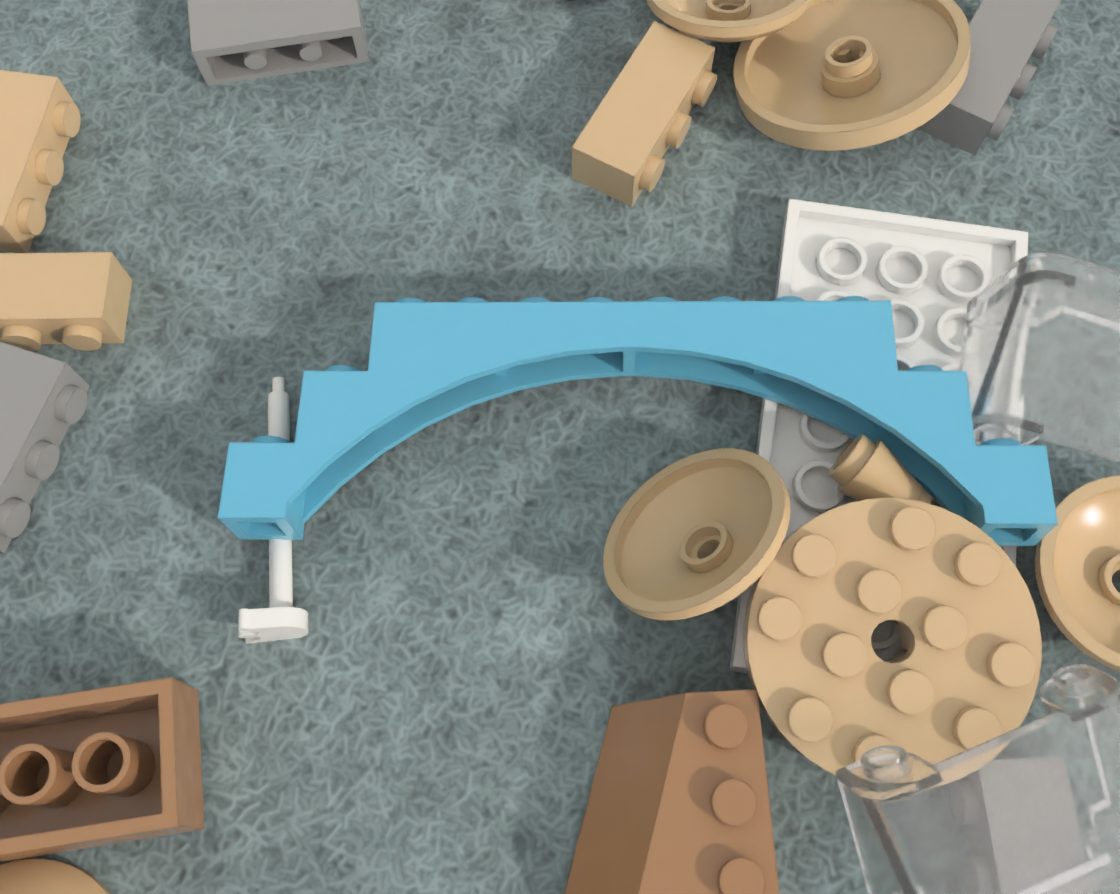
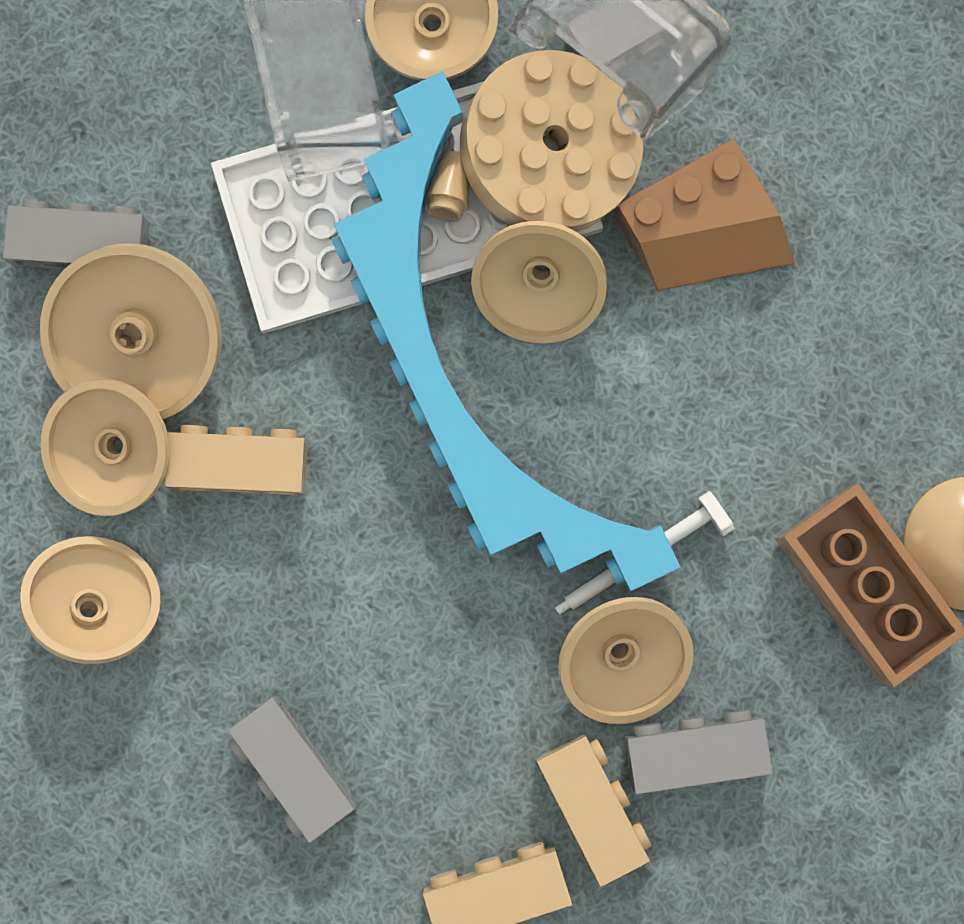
camera: 120 degrees left, 15 degrees up
(159, 410) = (637, 677): none -> tan dish

